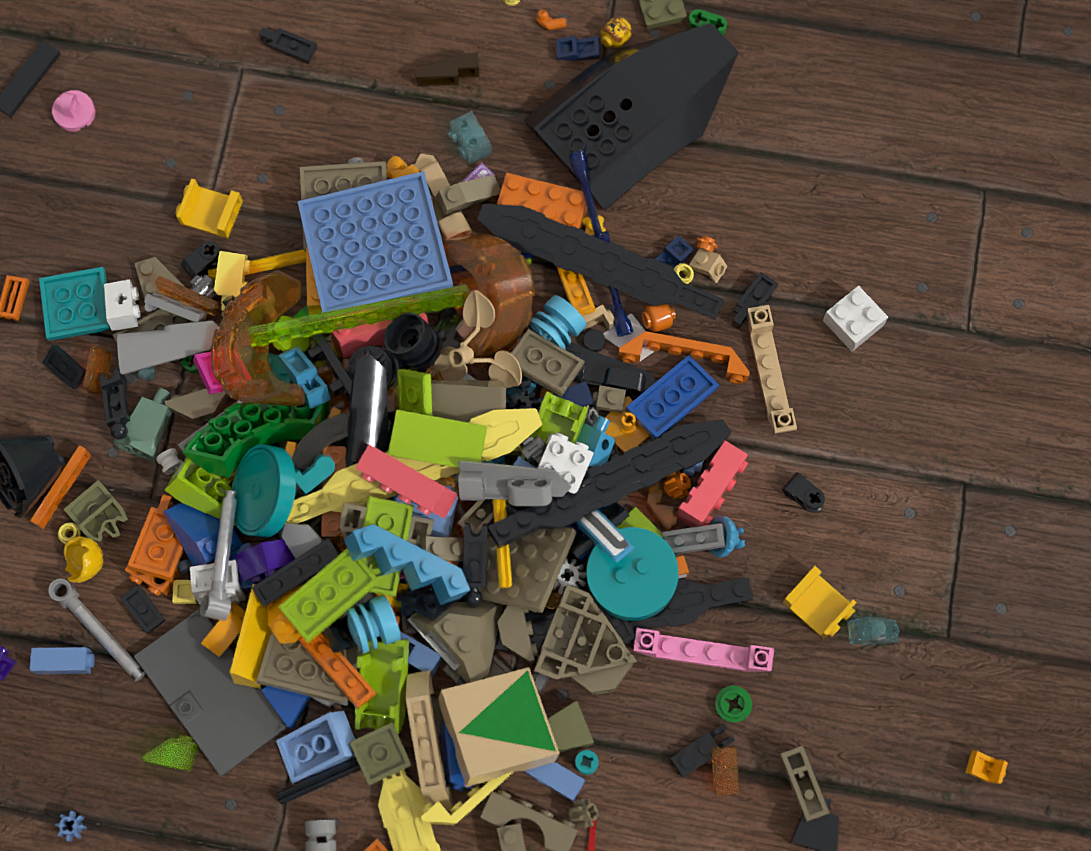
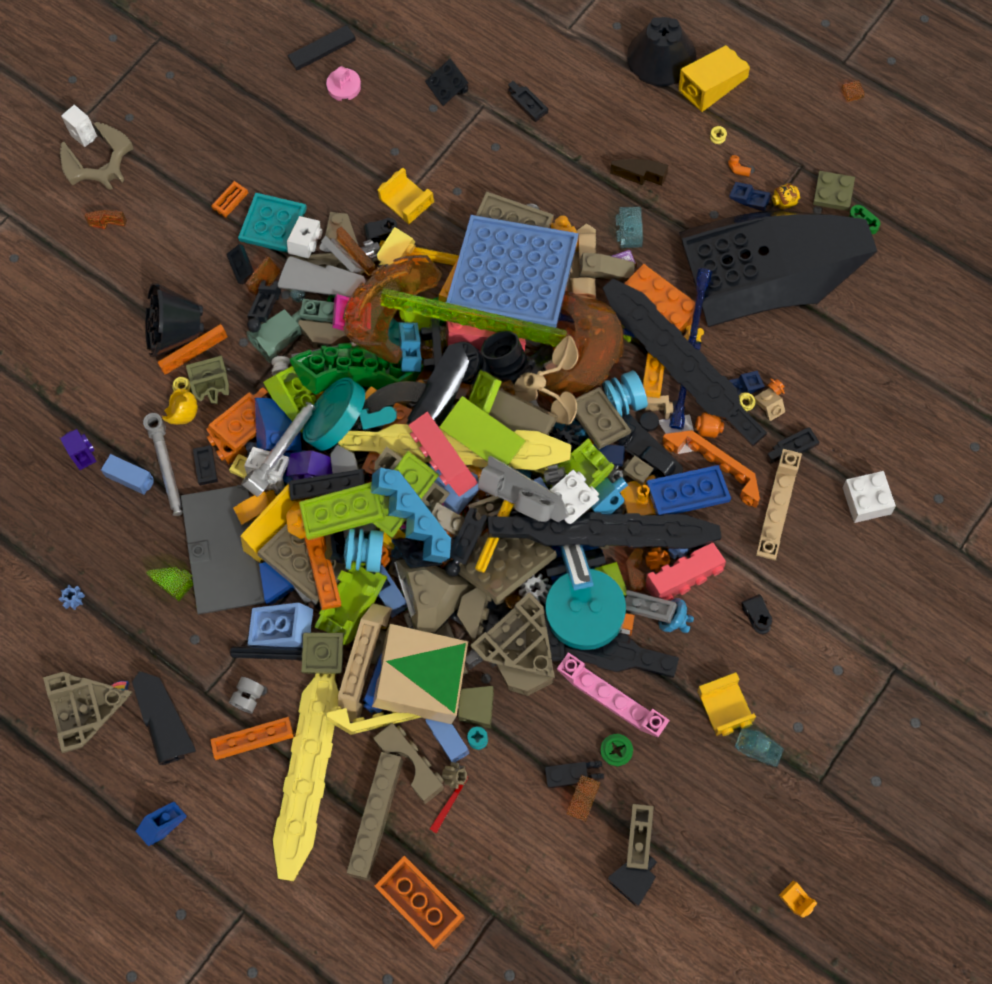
camera: 30 degrees right, 5 degrees down
(180, 381) = (317, 310): none -> sand green slope
(189, 59) = (447, 82): none -> black hinge

